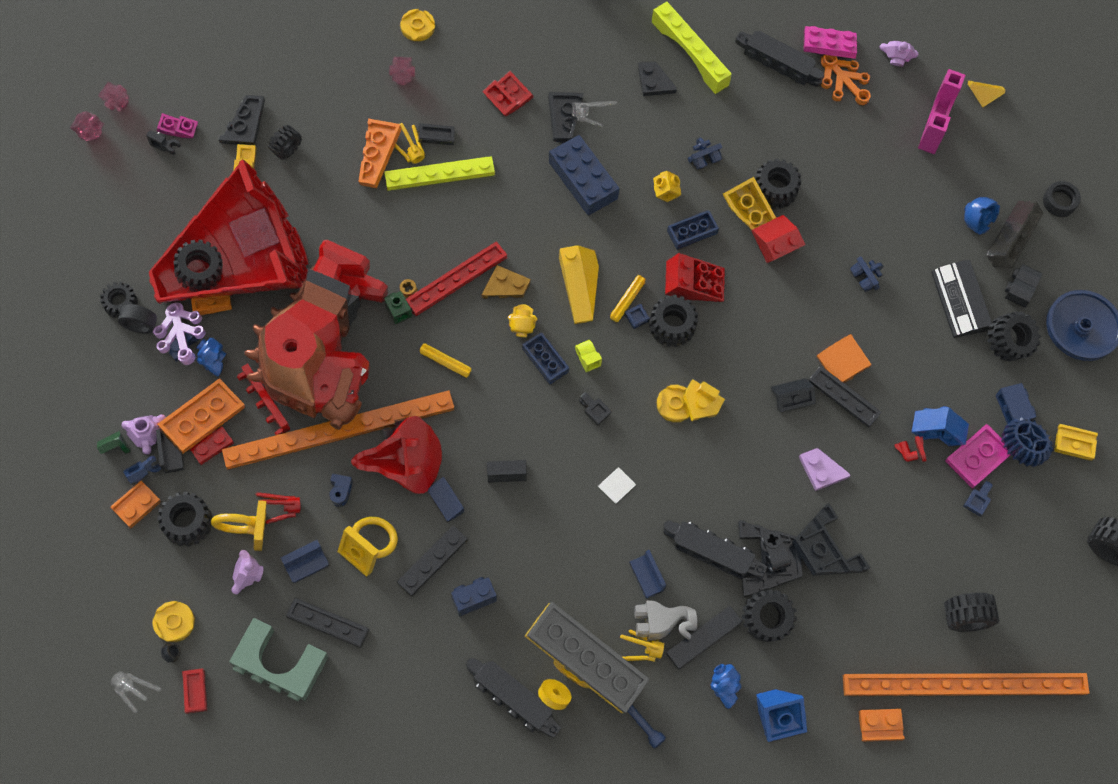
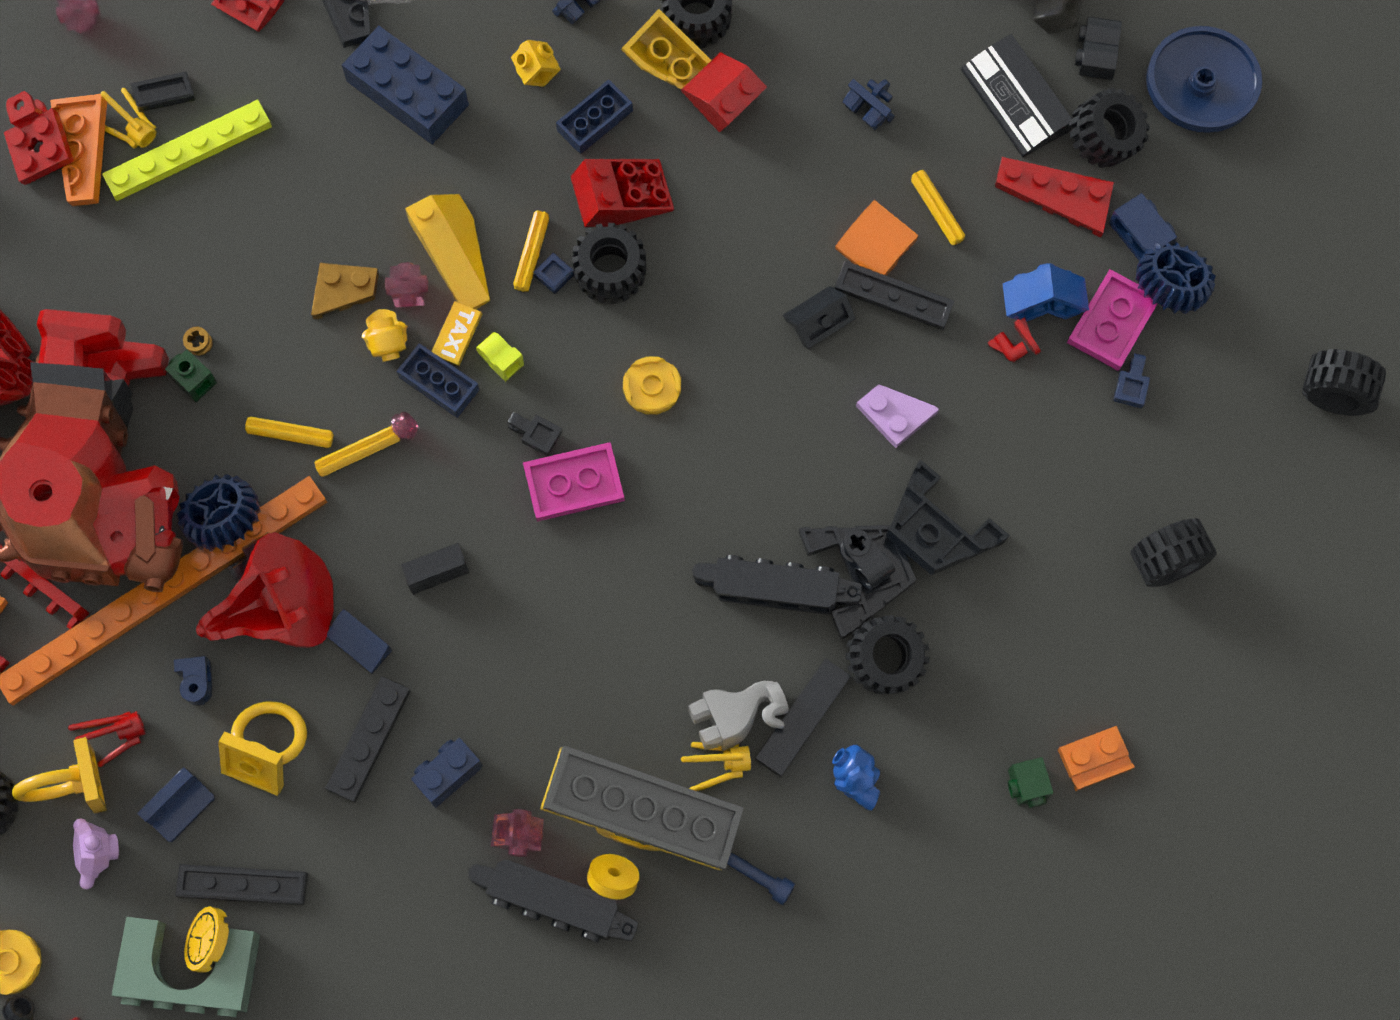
camera: 15 degrees left, 5 degrees up
(296, 647) = (206, 939): none -> yellow tile
(353, 130) = (32, 125): none -> red plate
(387, 390) = (222, 518): none -> dark blue gear
(456, 278) = (264, 303): red plate -> none
(482, 385) = (356, 451): none -> yellow axle
(505, 647) = (517, 832): none -> clear pink brick
(516, 378) = (404, 425): none -> clear pink plate
(545, 295) = (406, 285): none -> clear pink brick
(566, 333) = (457, 333): none -> yellow tile
(608, 446) = (573, 481): none -> dark pink plate
(617, 485) = (605, 535): white sticker -> none
(648, 575) = (692, 654): dark blue panel -> none
(702, 400) = (689, 368): yellow plate -> none
(781, 714) = (949, 792): blue slope -> none
(834, 725) = (1030, 783): none -> dark green brick
(889, 351) = (938, 207): none -> yellow axle
(965, 684) = (1194, 659): orange plate -> none
(974, 369) = (1068, 194): none -> red wing
(1076, 442) = (1243, 255): yellow plate -> none

